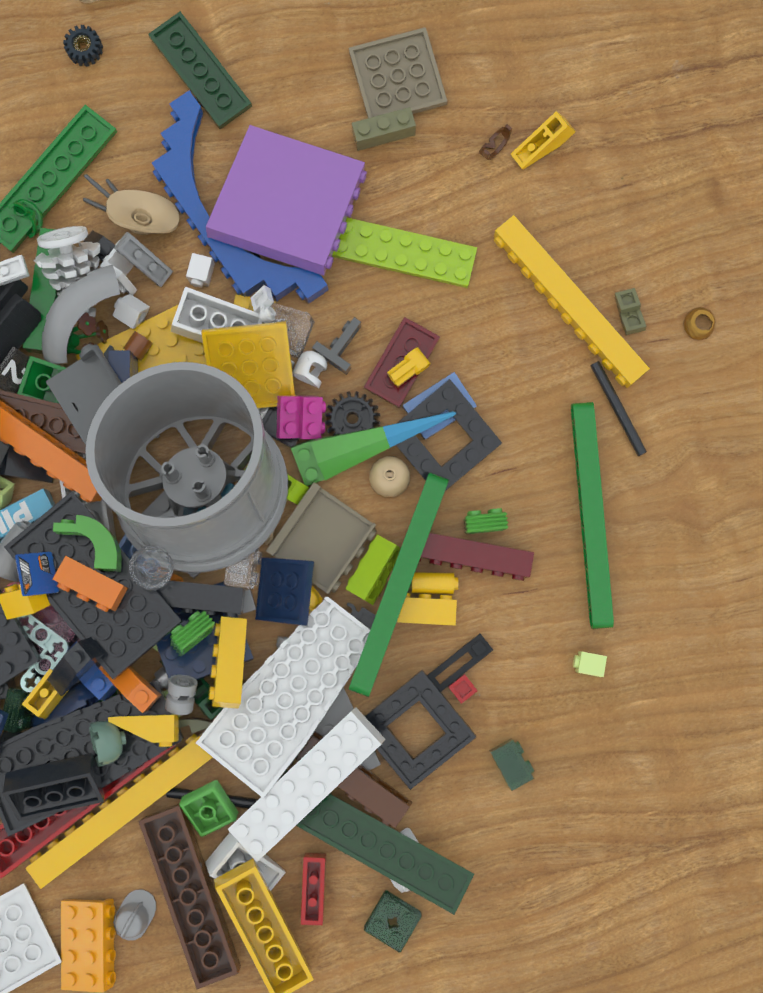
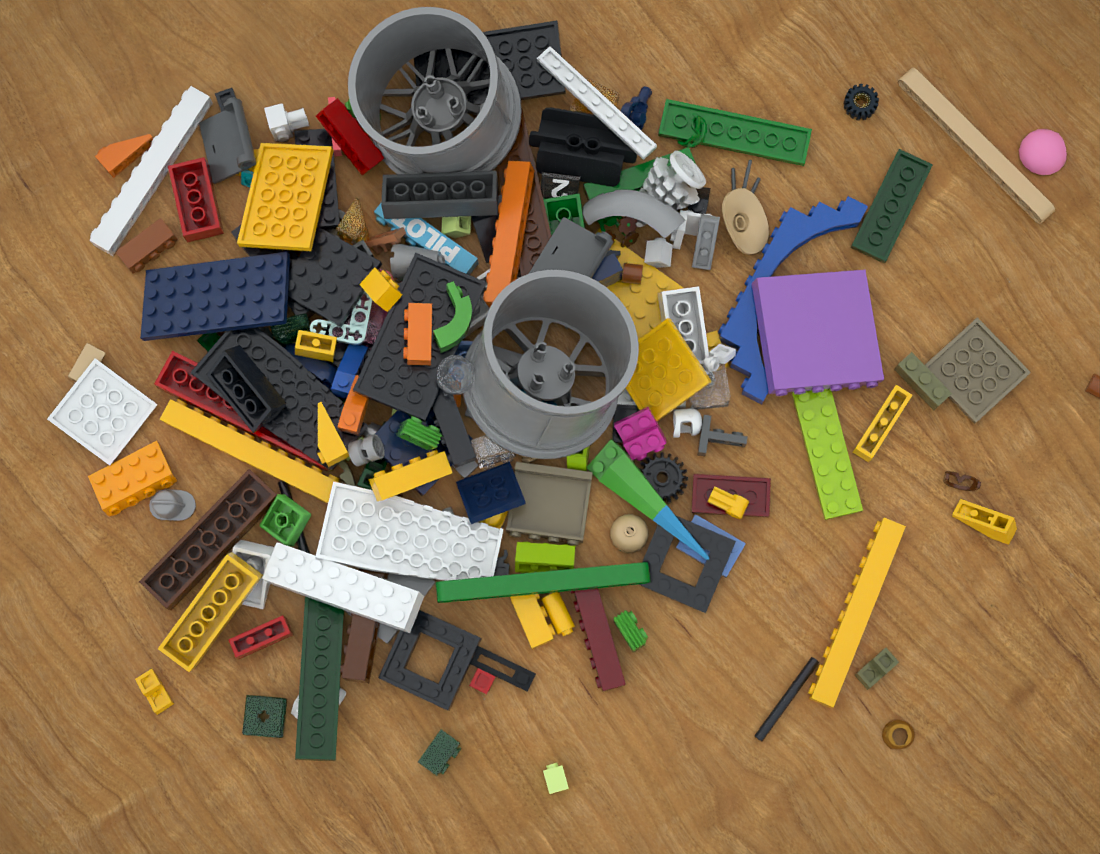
camera: 65 degrees right, 5 degrees down
(36, 573) = (407, 288): blue sticker -> none
(75, 665) = (349, 355): black slope -> none
(106, 742) = (301, 410): sand green cylinder -> none
(200, 270) = (721, 291): white brick -> none
(405, 186) = (882, 423): none -> yellow brick
(592, 515) = (682, 719): green beam -> none

